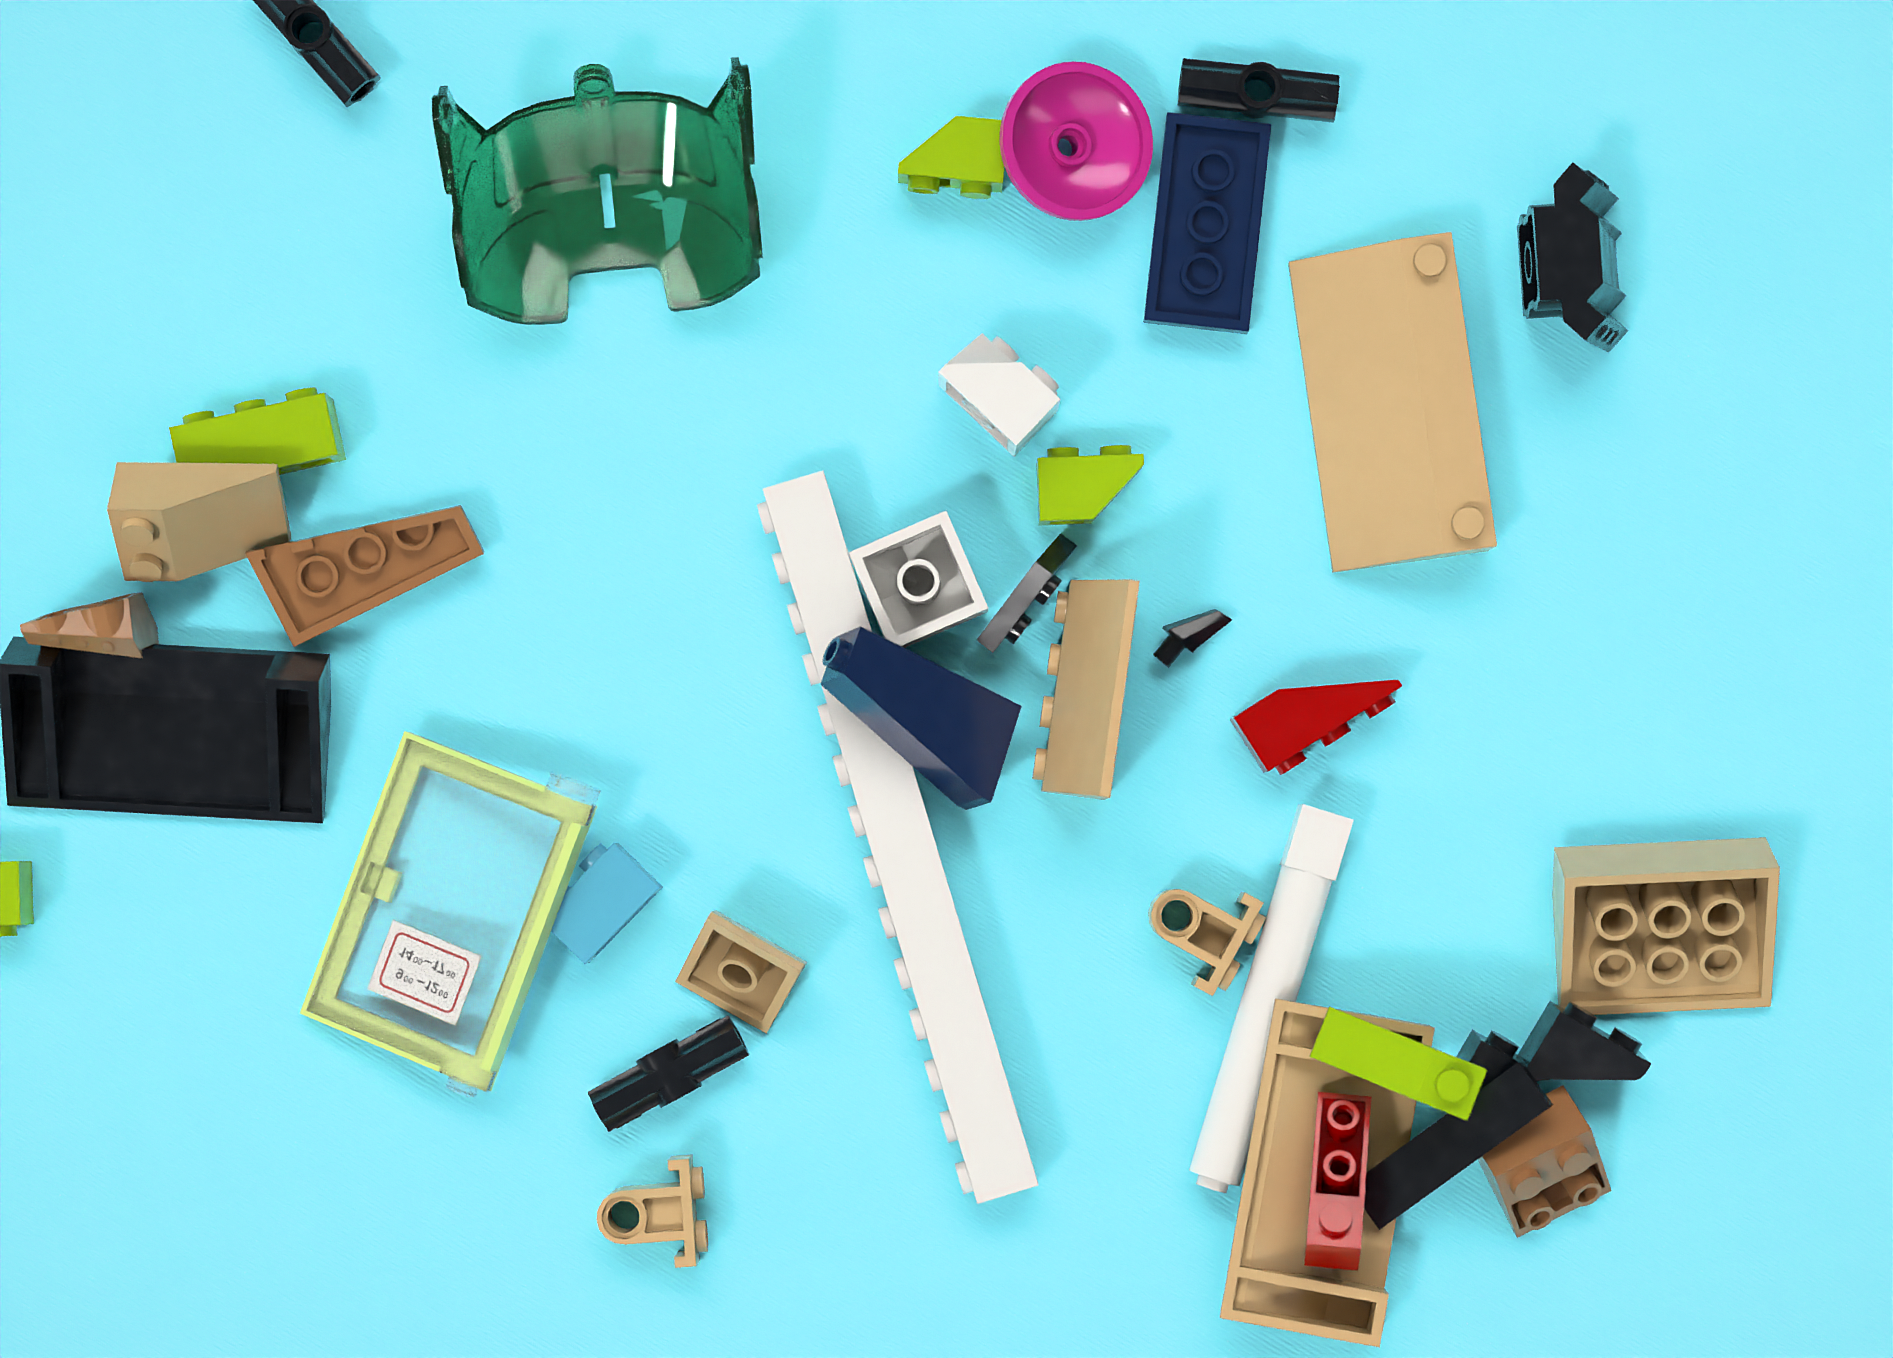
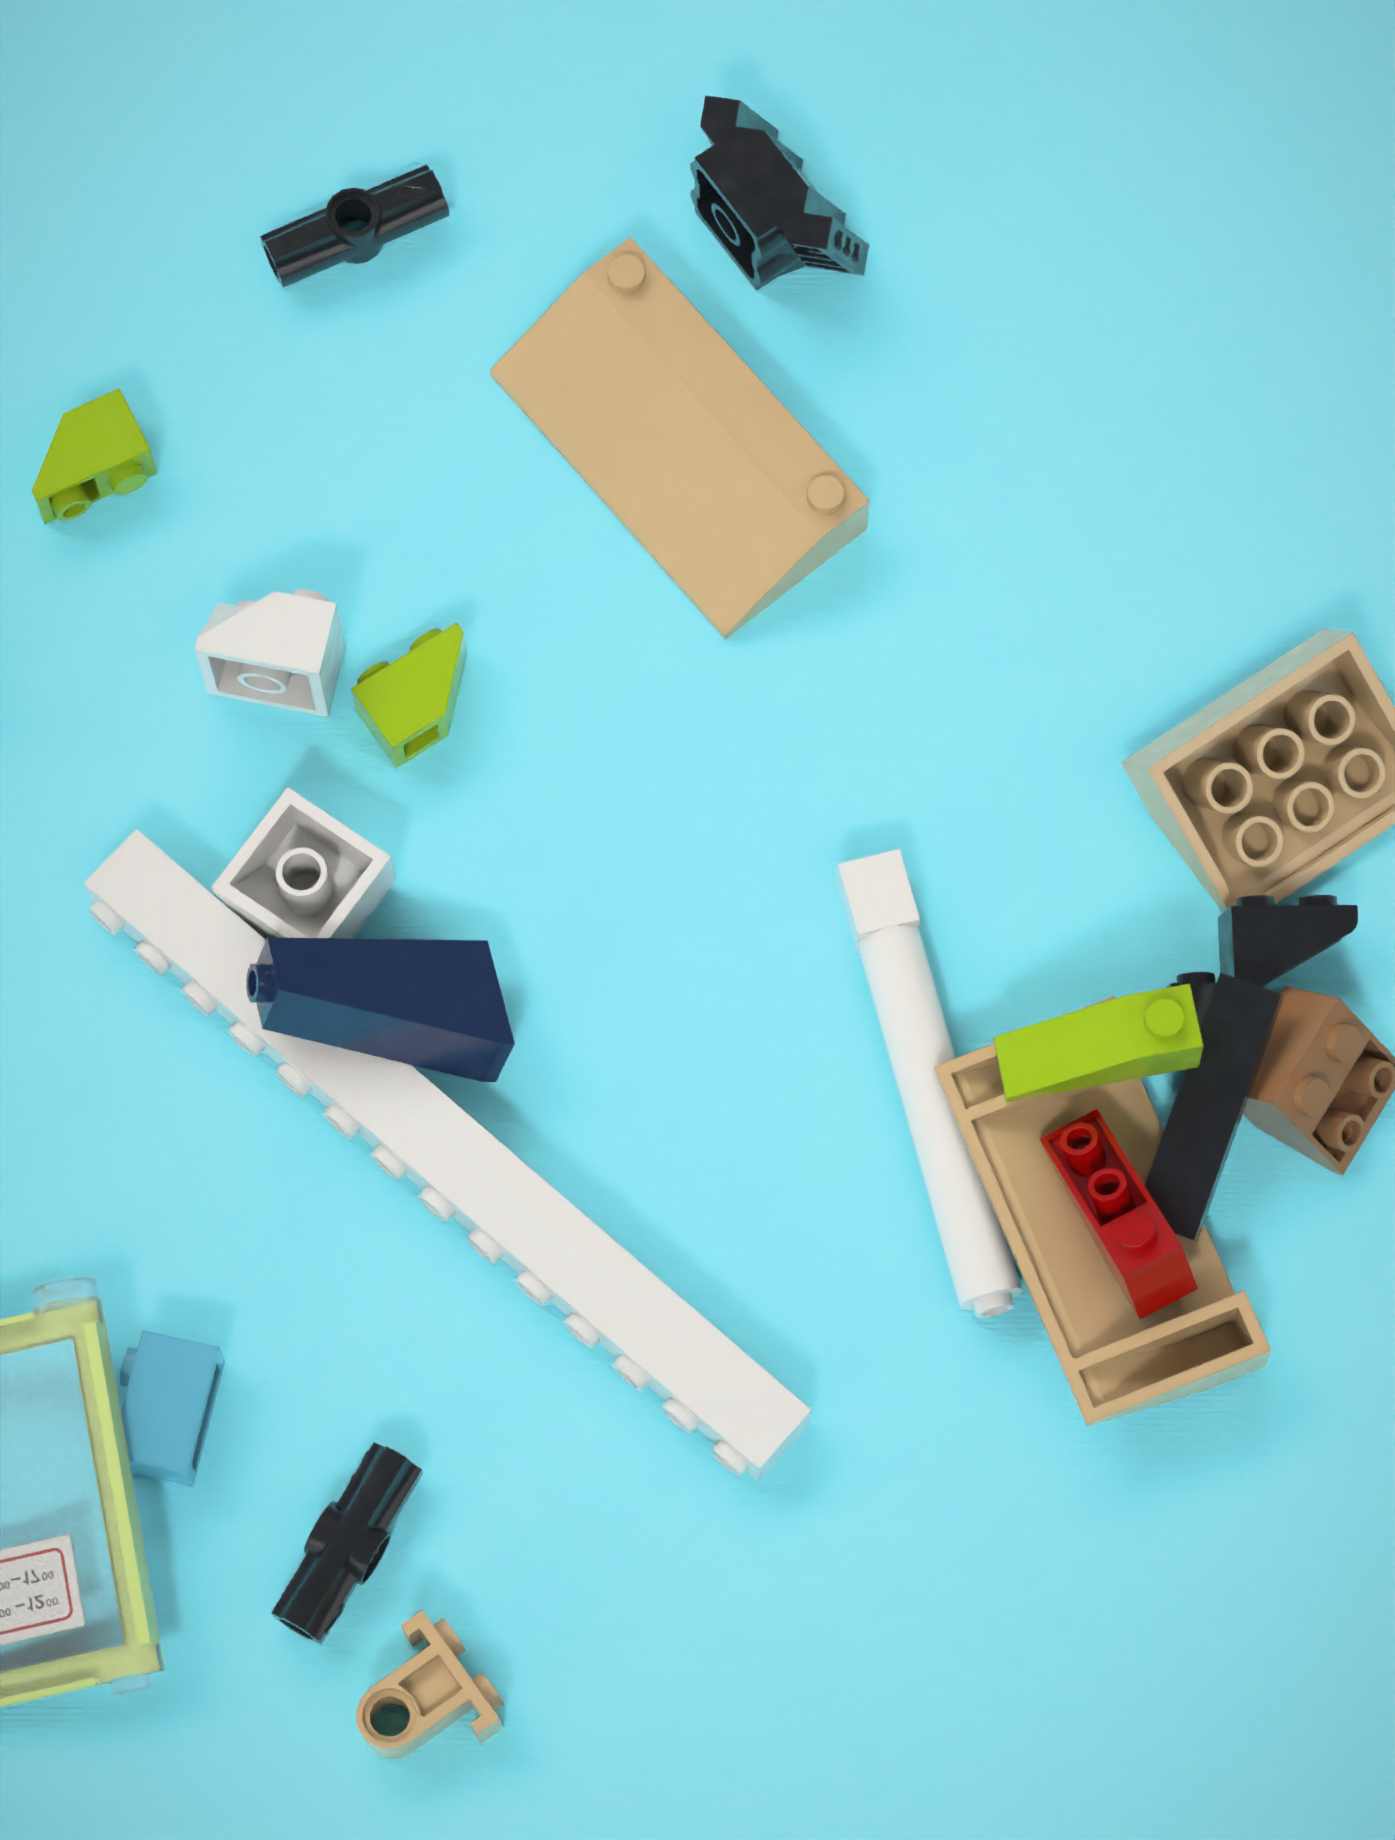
camera: 30 degrees left, 15 degrees down
(740, 971) = (359, 1386): tan slope -> none
(1036, 585) = (427, 810): wing -> none
(1088, 687) = (546, 878): tan slope -> none
(1106, 133) = (204, 343): dark pink dish -> none
(1189, 634) = (617, 781): black bar -> none
(1207, 223) = (383, 379): dark blue plate -> none
(1210, 934) = (828, 1056): tan pin -> none
(1294, 718) = (778, 789): red slope -> none

